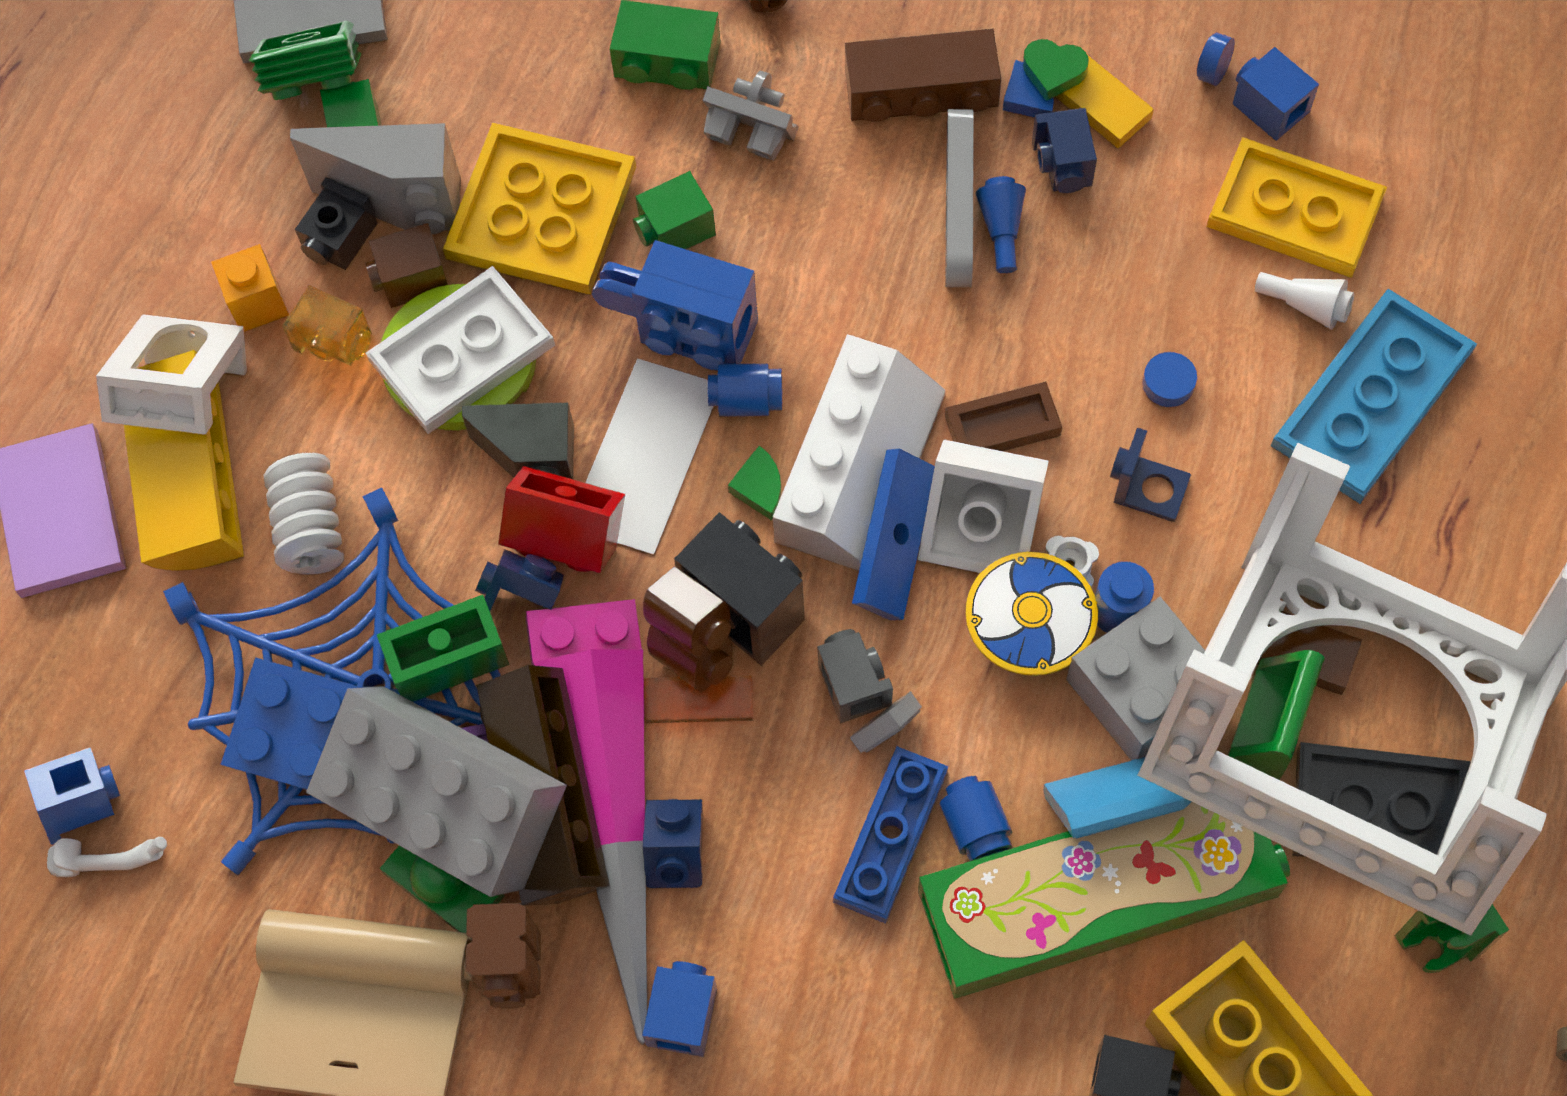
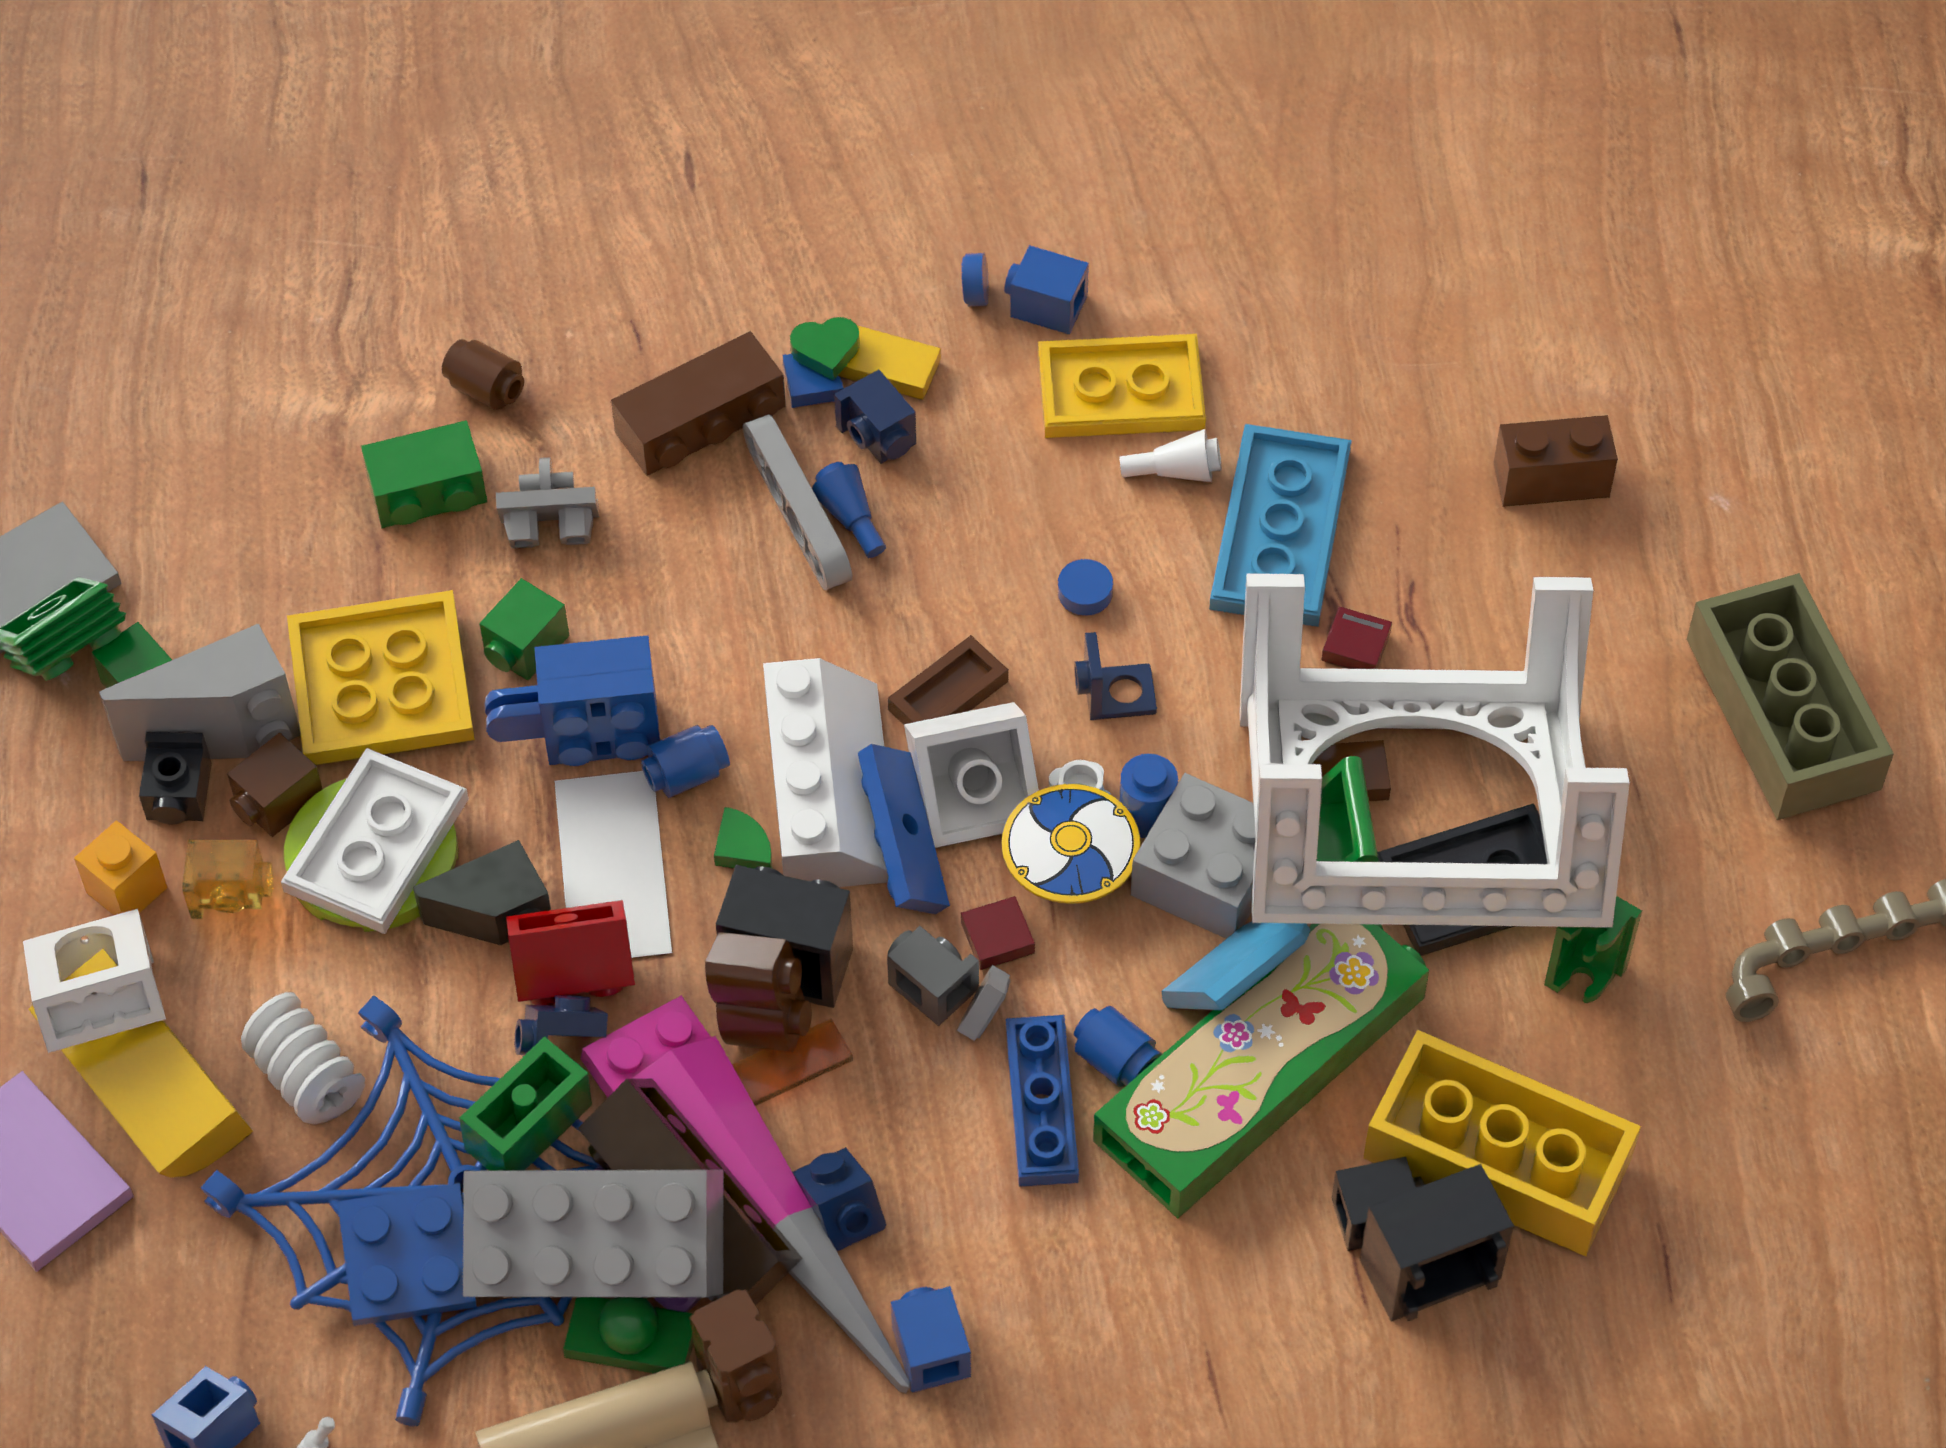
camera: 30 degrees left, 10 degrees down
(931, 663) = (997, 932): none -> dark red tile
(1386, 534) = (1356, 640): none -> dark red tile

